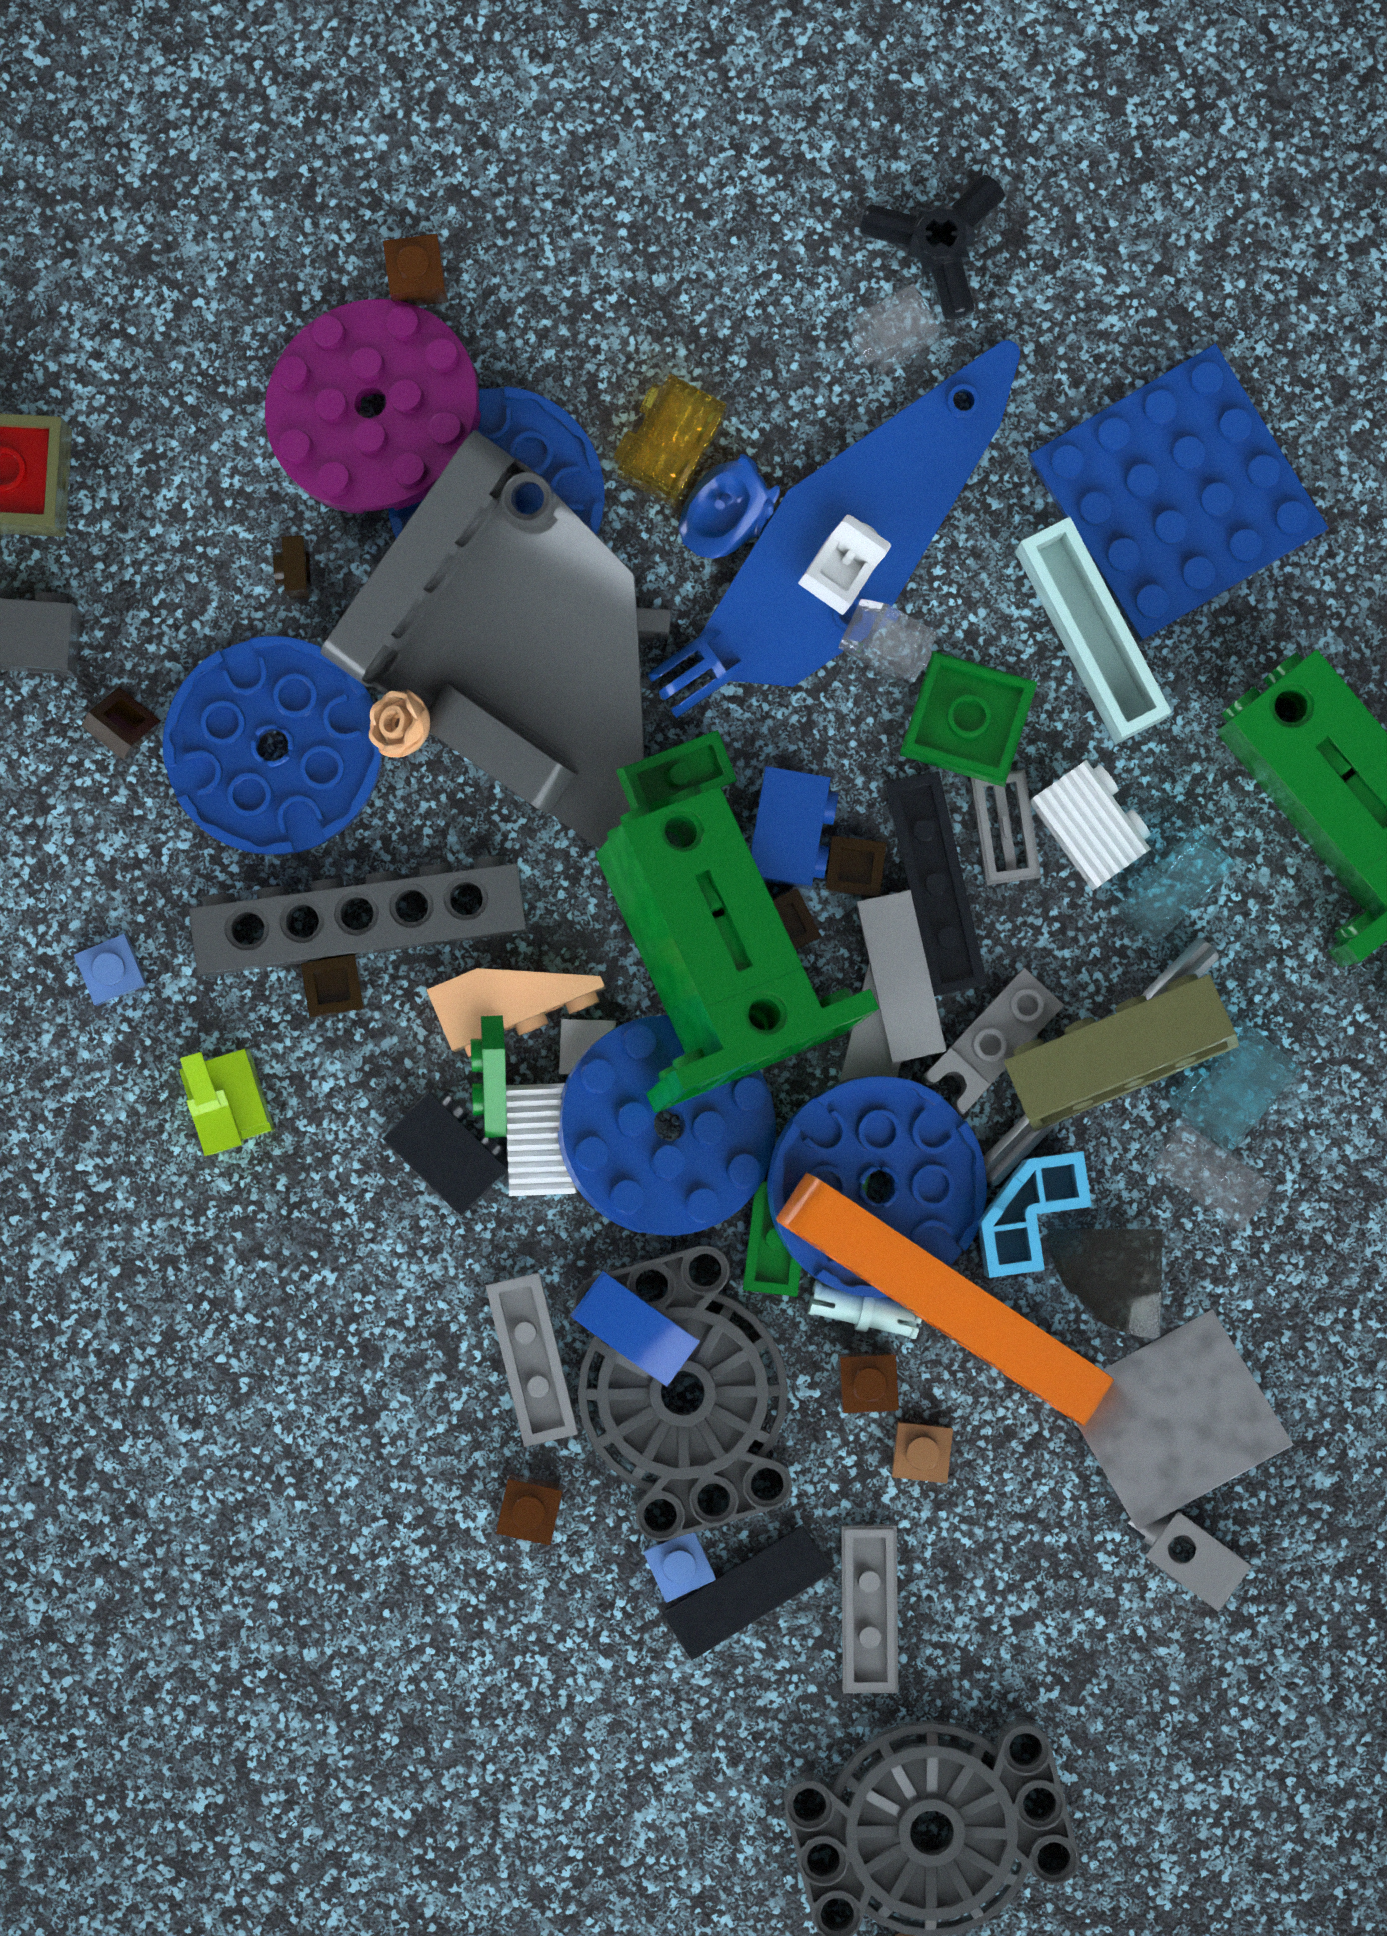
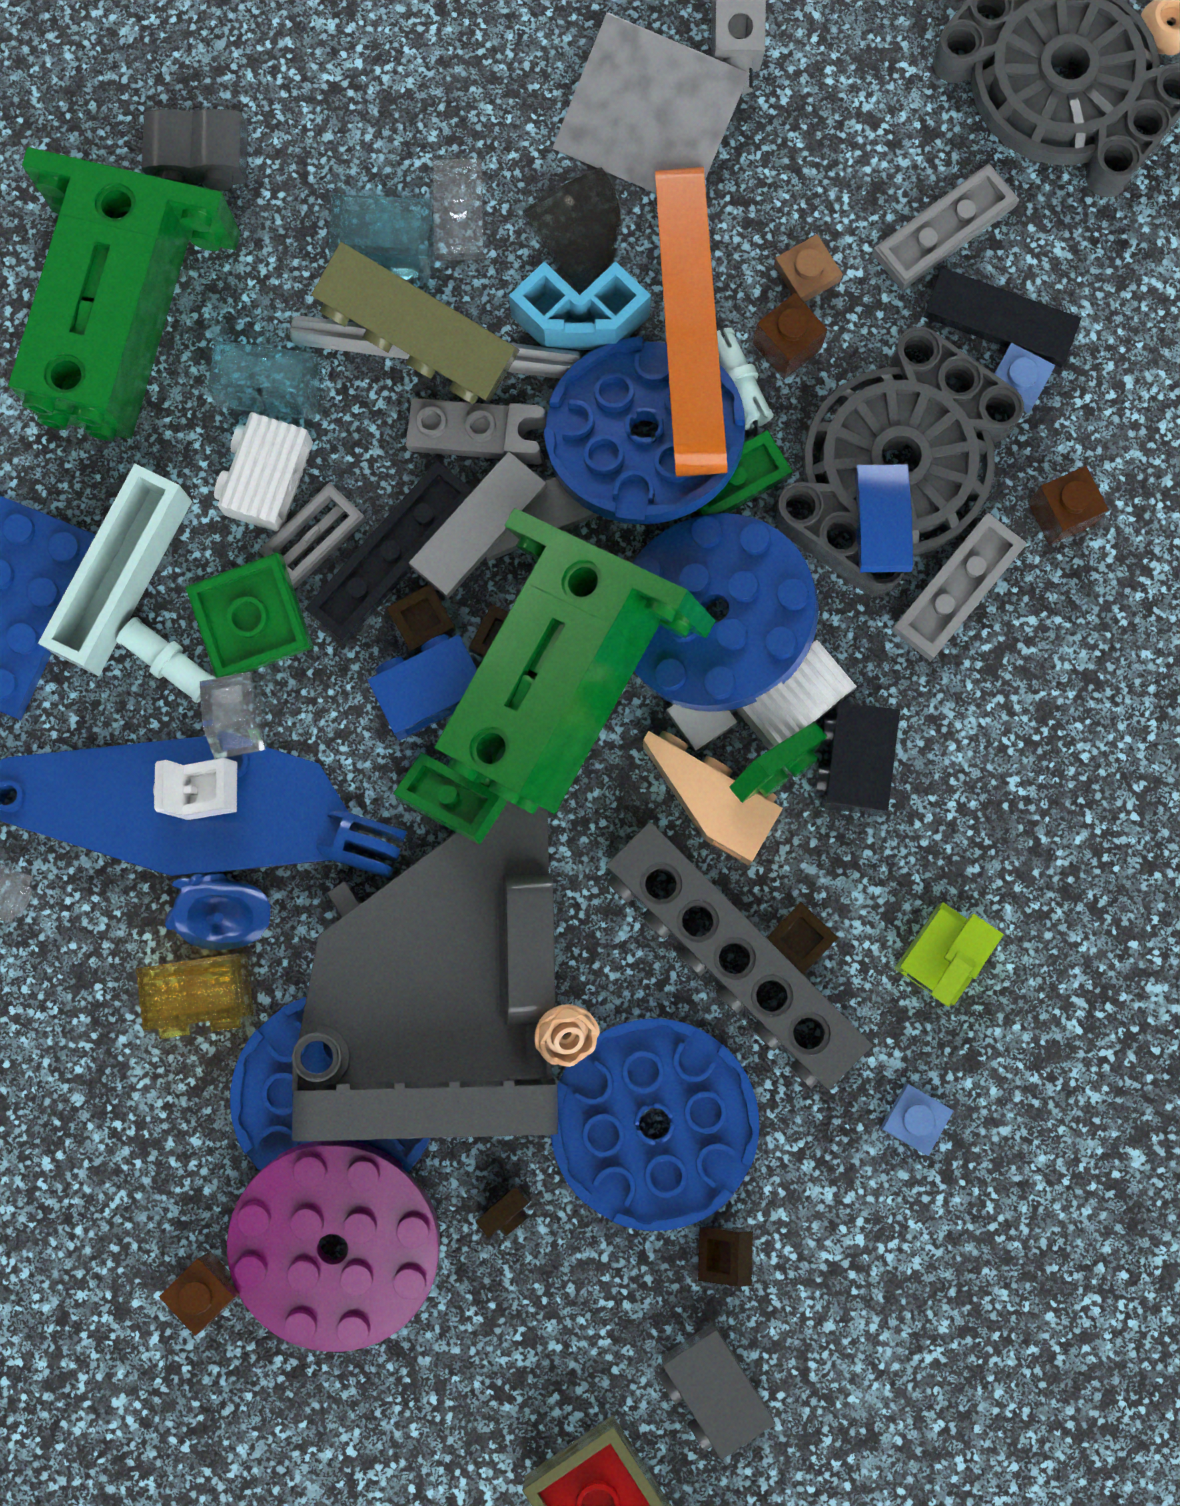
camera: 125 degrees left, 5 degrees down
(985, 619) = (163, 657): none -> light aqua pin

